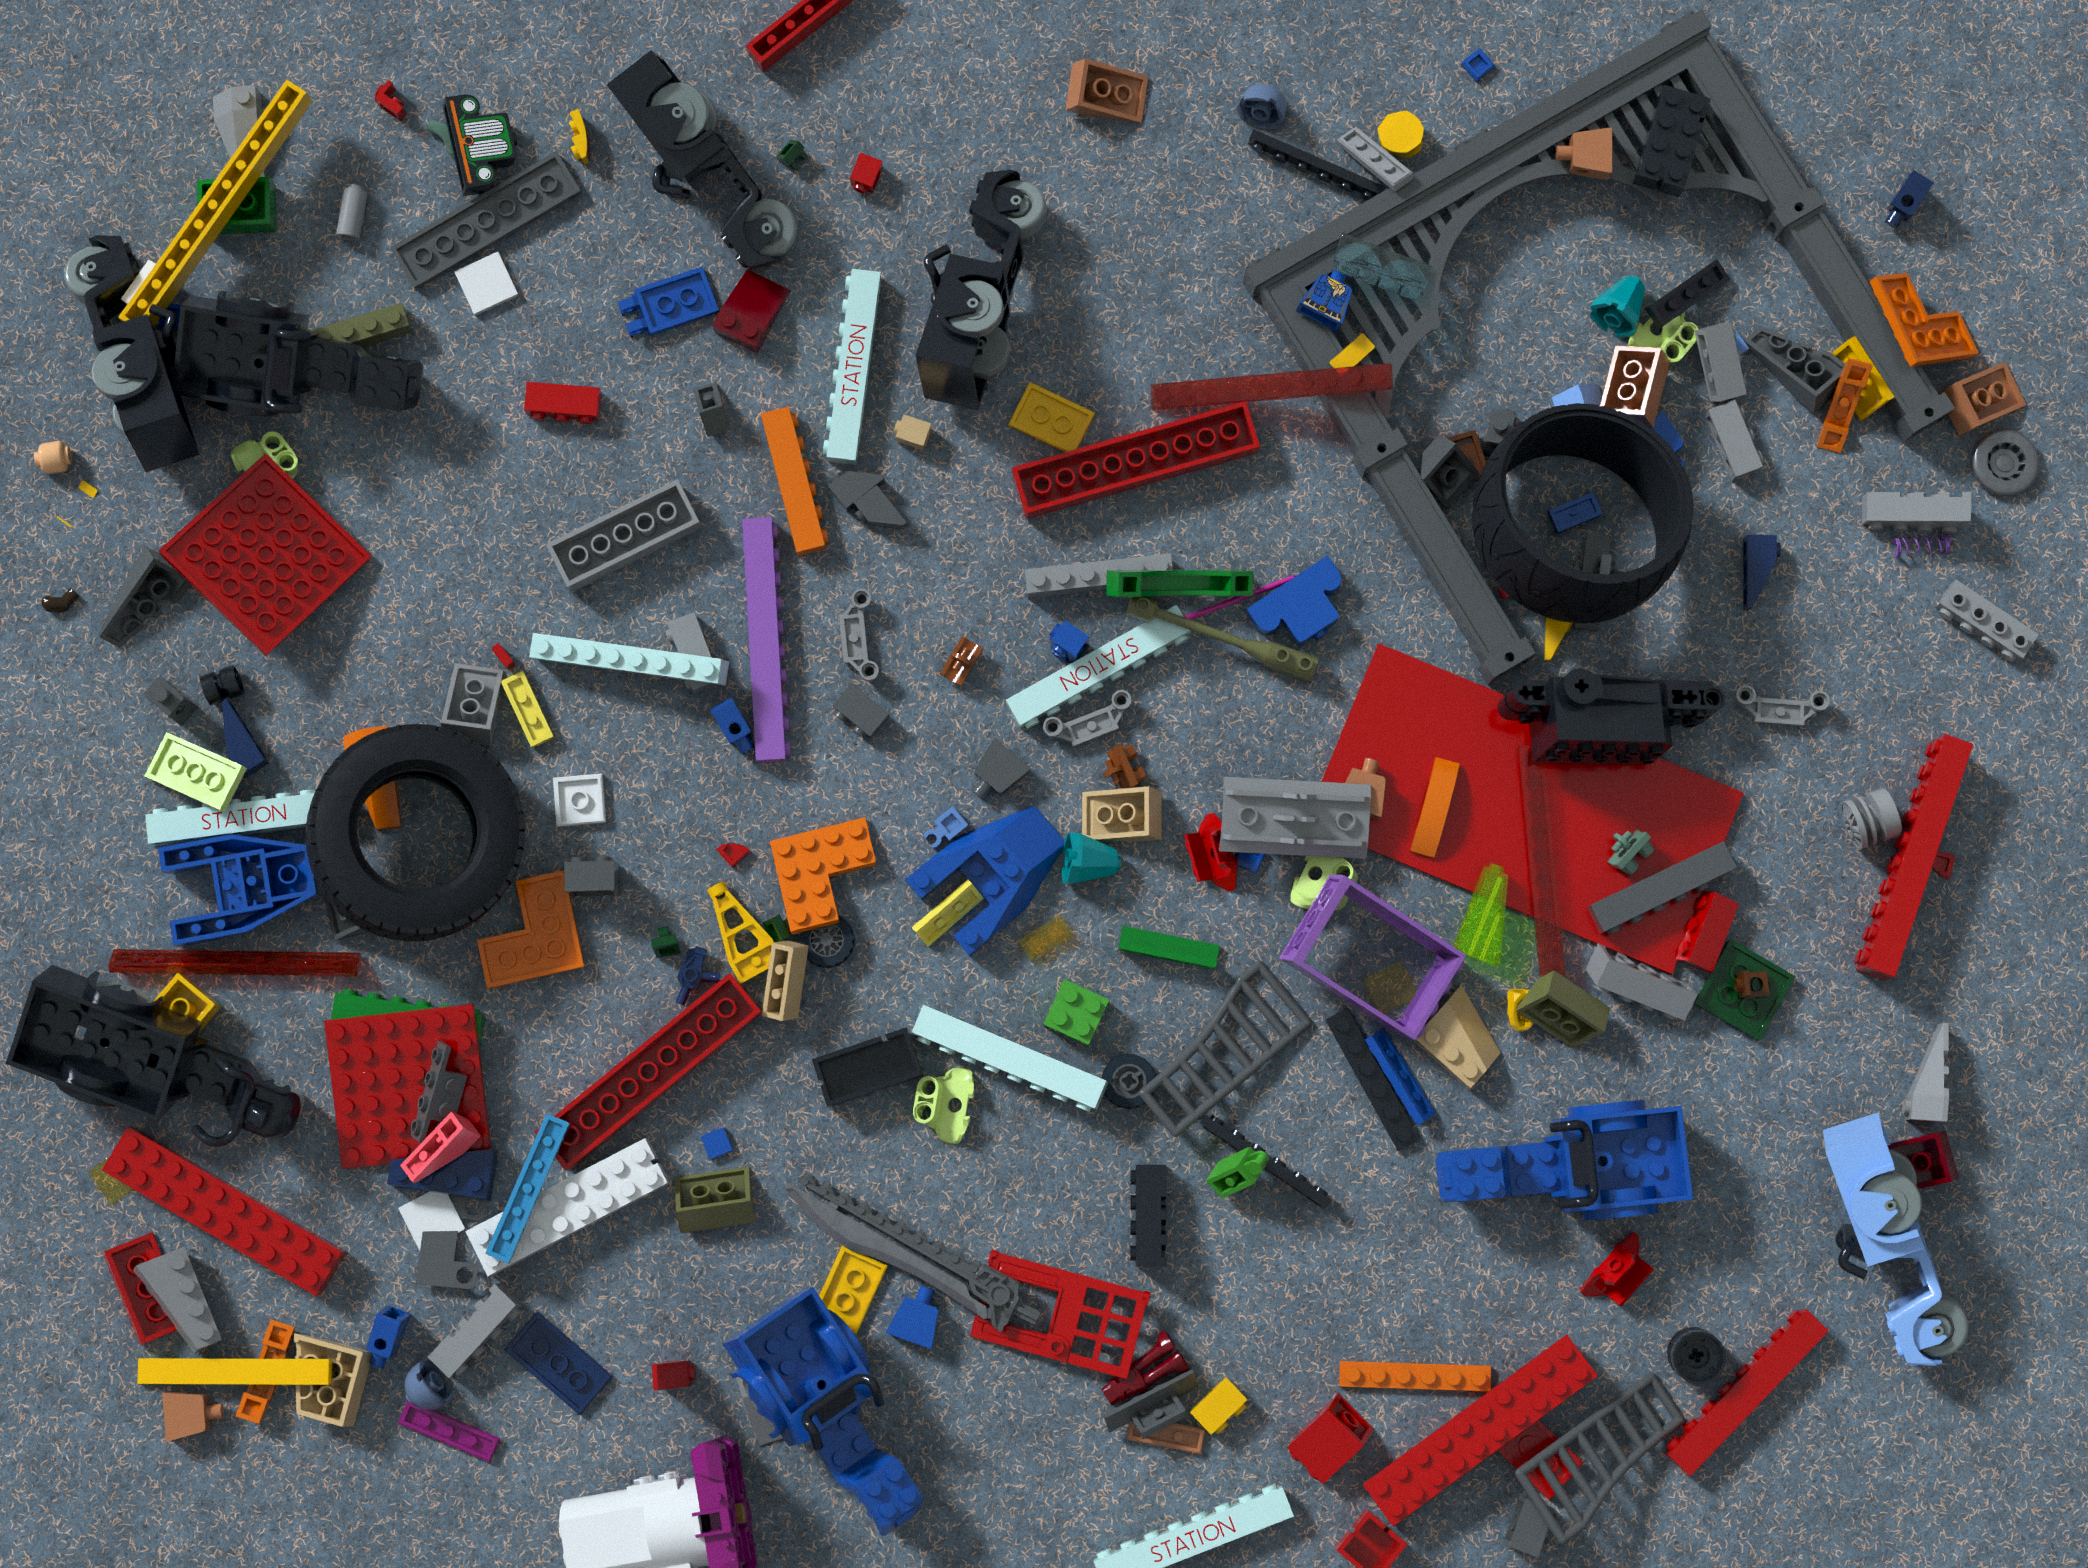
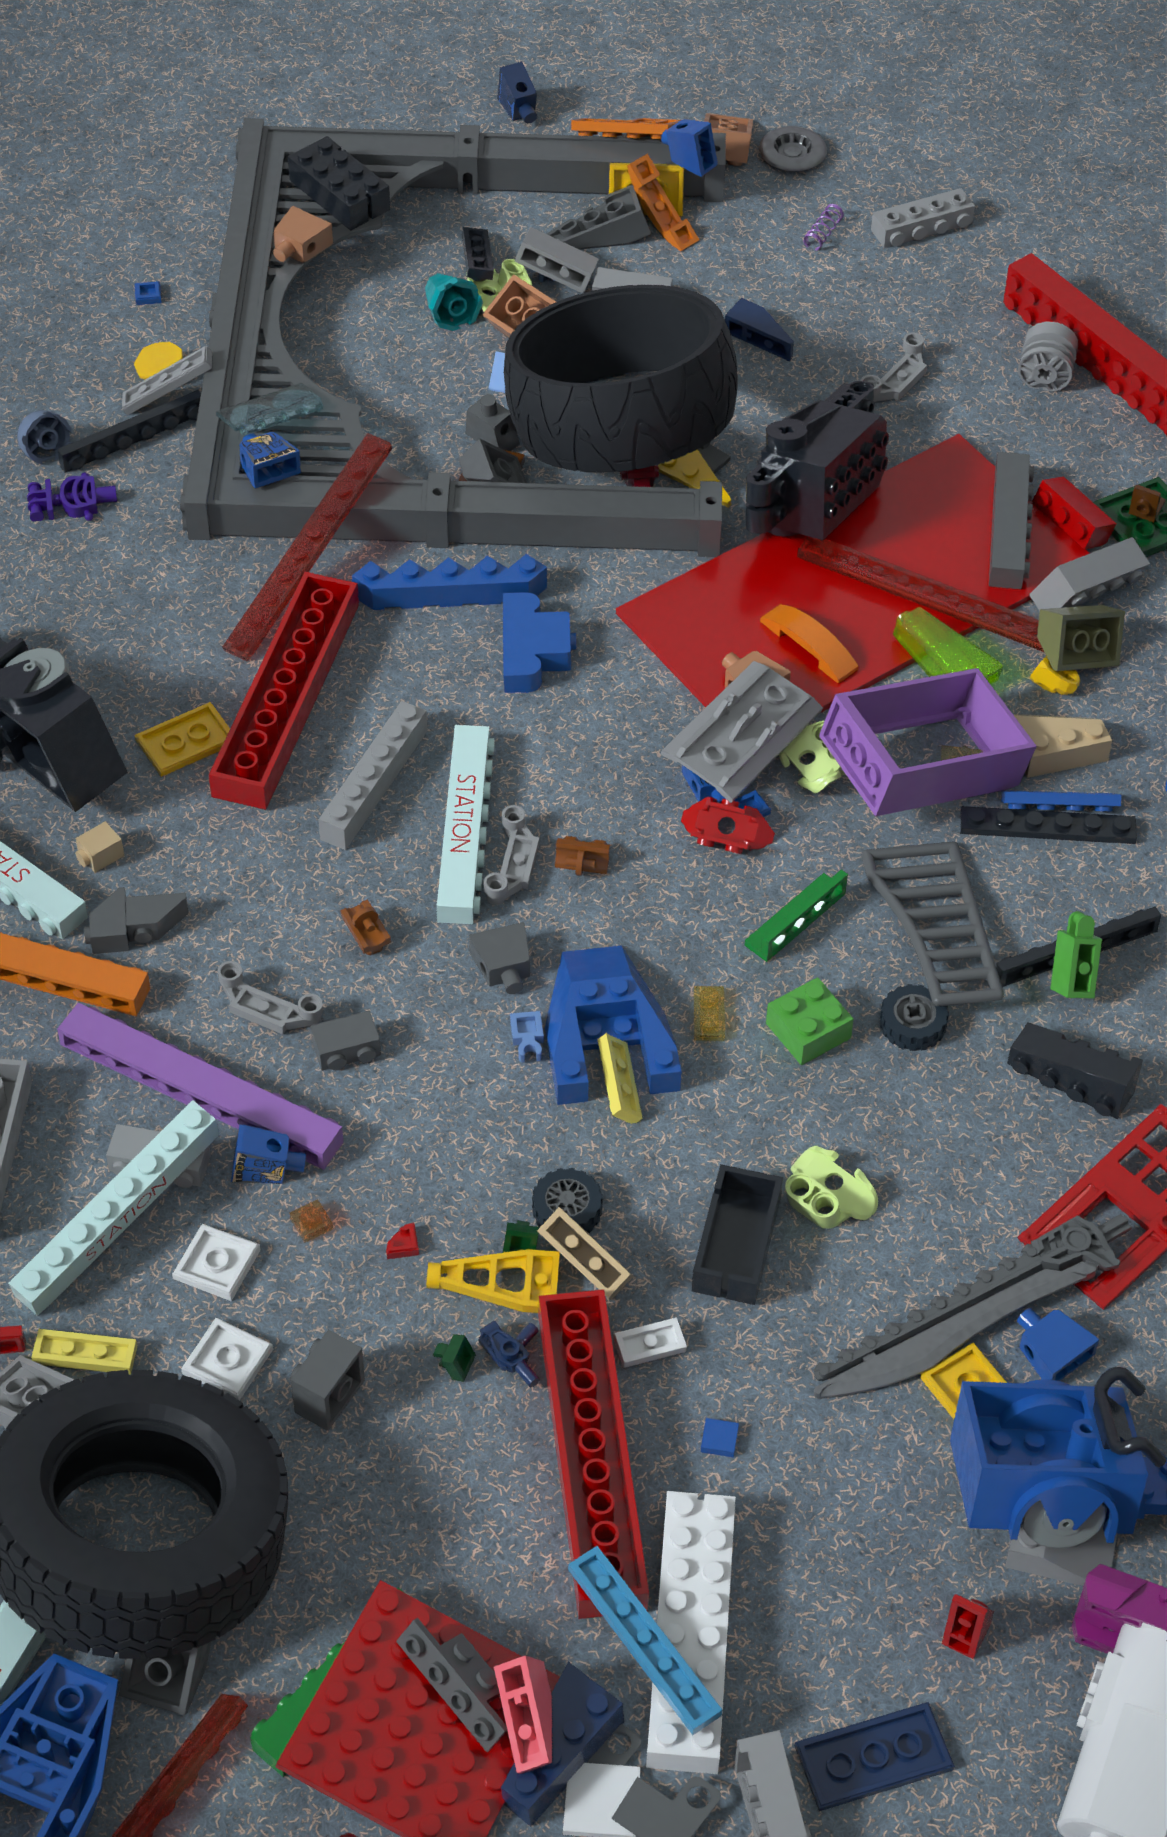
camera: 60 degrees left, 30 degrees down
(545, 945) = (363, 1483): orange plate -> none
(644, 744) = (216, 1262): none -> white tile
(711, 783) = (311, 1220): none -> clear orange plate
(714, 1199) = (786, 1470): olive slope -> none
(755, 1058) = (649, 1342): none -> white plate
(809, 860) = (475, 1177): orange plate -> none
(1009, 1057) = (819, 1096): light aqua brick -> none
(1068, 642) = (420, 824): blue brick -> none
(1087, 859) = (651, 925): teal cone -> none
(1122, 814) = (630, 880): tan slope -> none
(1179, 582) = (414, 719): green arch -> none
(1236, 184) = (84, 502): none -> dark purple torso
(1239, 598) = (488, 682): dark pink axle -> none
(1273, 655) = (569, 683): olive bar -> none
(1316, 509) = (448, 583): none -> blue brick
(1353, 352) = (330, 468): yellow sticker -> none
(1627, 847) = (956, 524): sand green hips -> none
(1903, 396) = (691, 146): none -> blue torso
(1916, 511) = (793, 208): light grey wedge -> none

